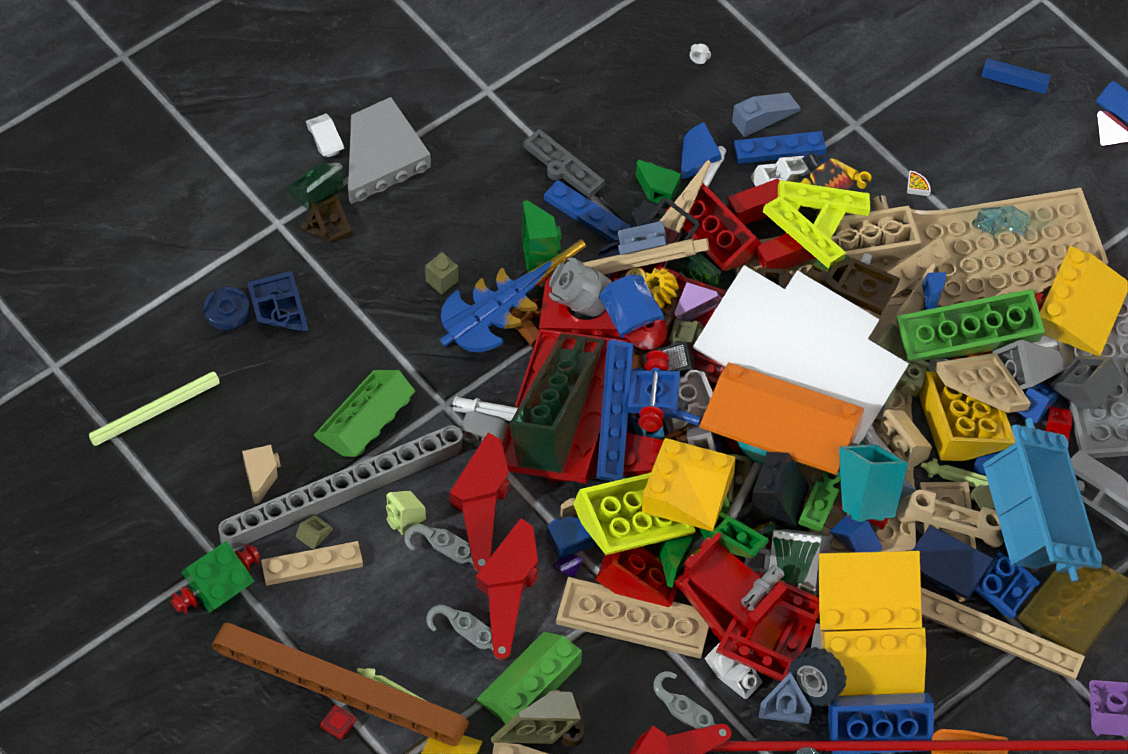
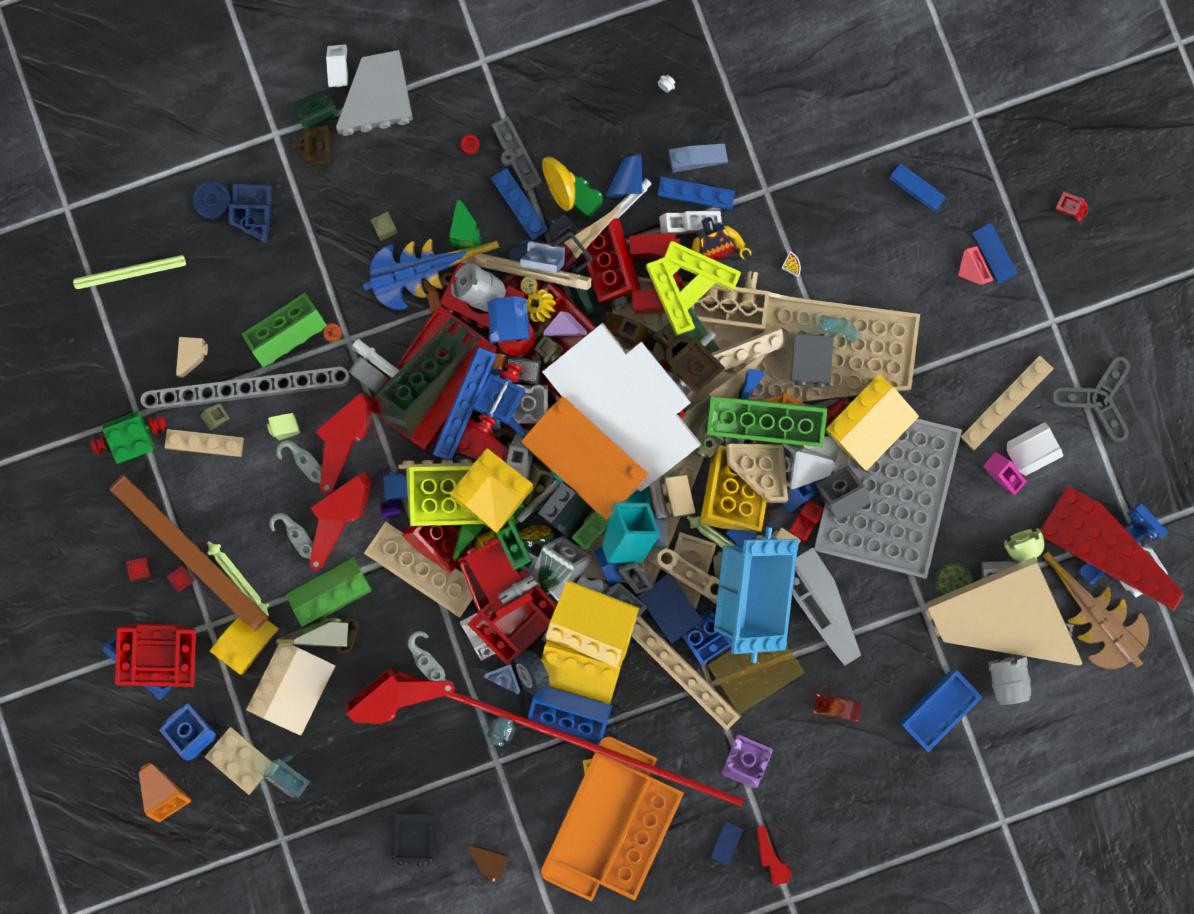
camera: 25 degrees right, 25 degrees up
(280, 728) = (138, 569): none -> tile
(422, 401) = (332, 332): none -> clear red tile
(506, 171) = (470, 144): none -> red tile
(625, 168) = (559, 182): none -> yellow dish
(749, 261) = (620, 303): none -> pearl dark grey tile
(893, 534) = (635, 577): none -> dark grey slope
(987, 260) = (812, 360): none -> dark grey brick

